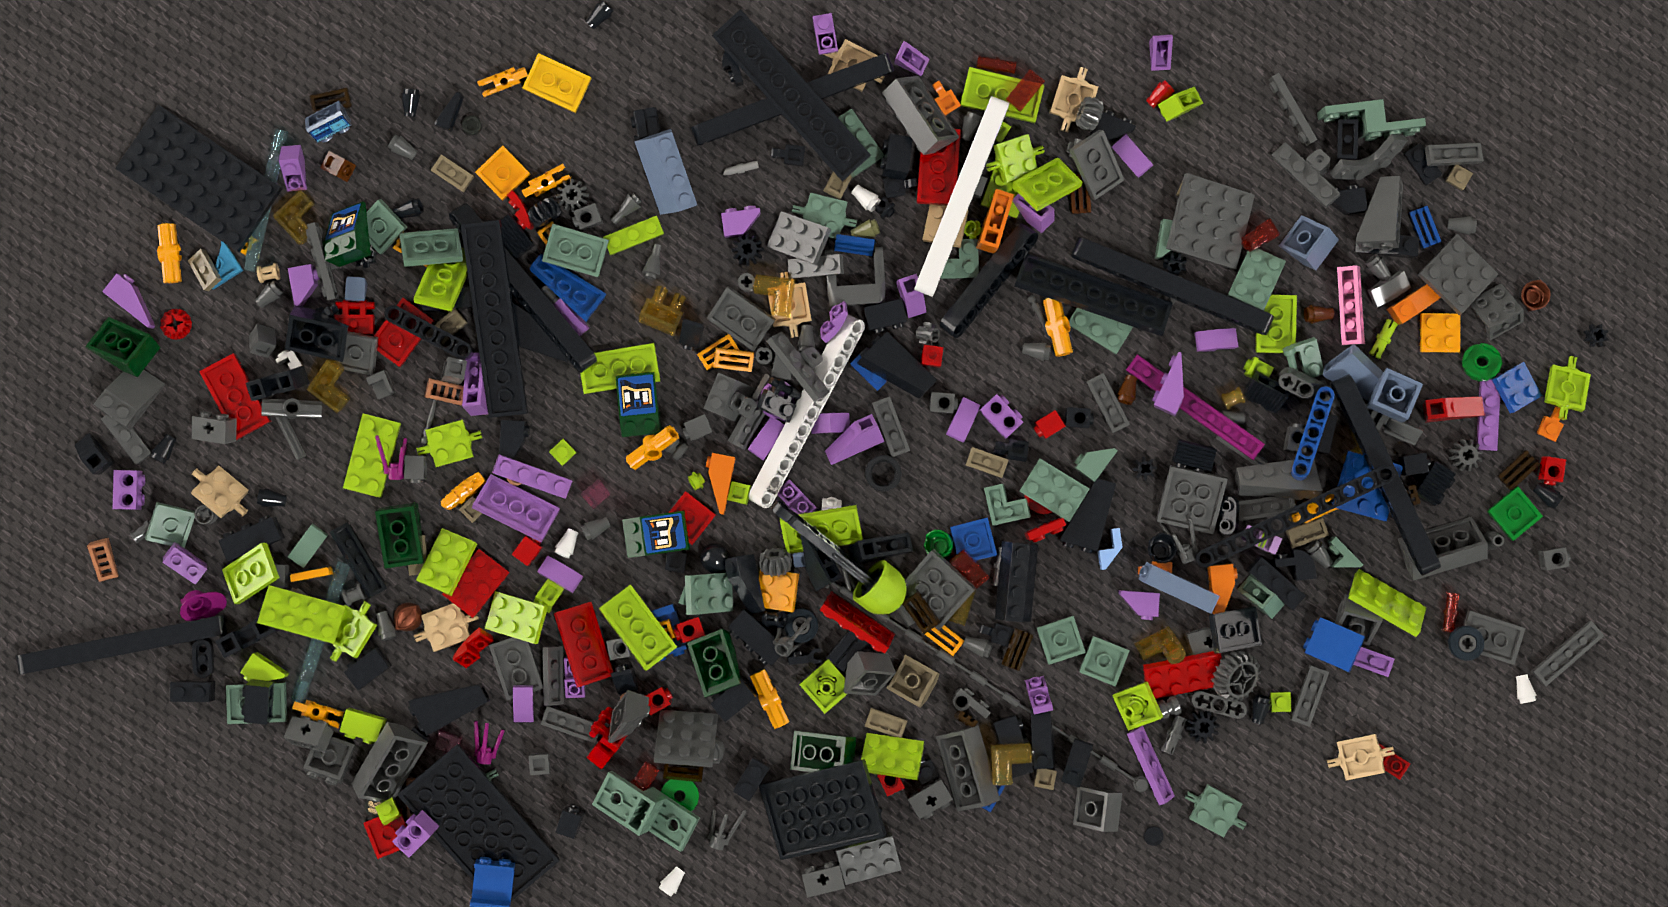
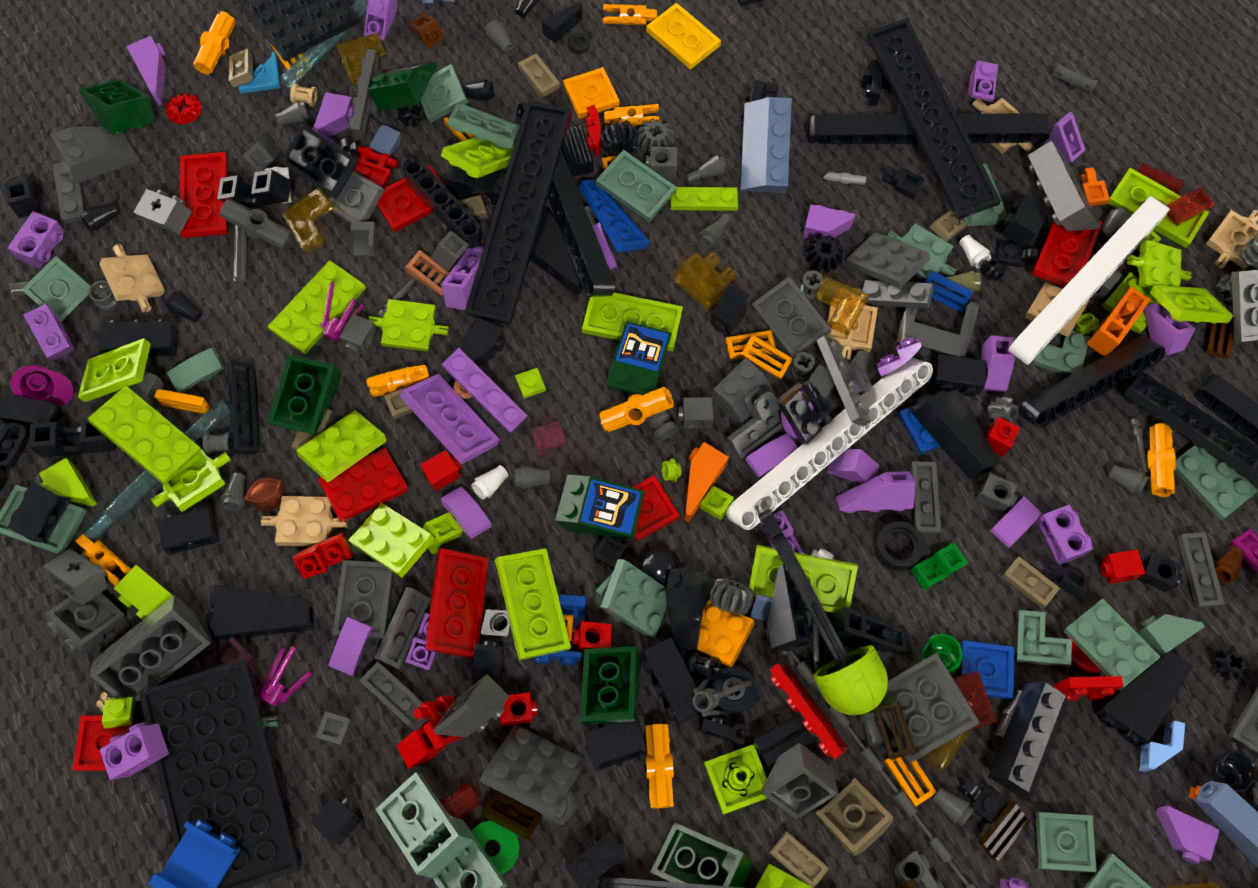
camera: 20 degrees right, 20 degrees down
(917, 475) = (939, 566): none -> green slope

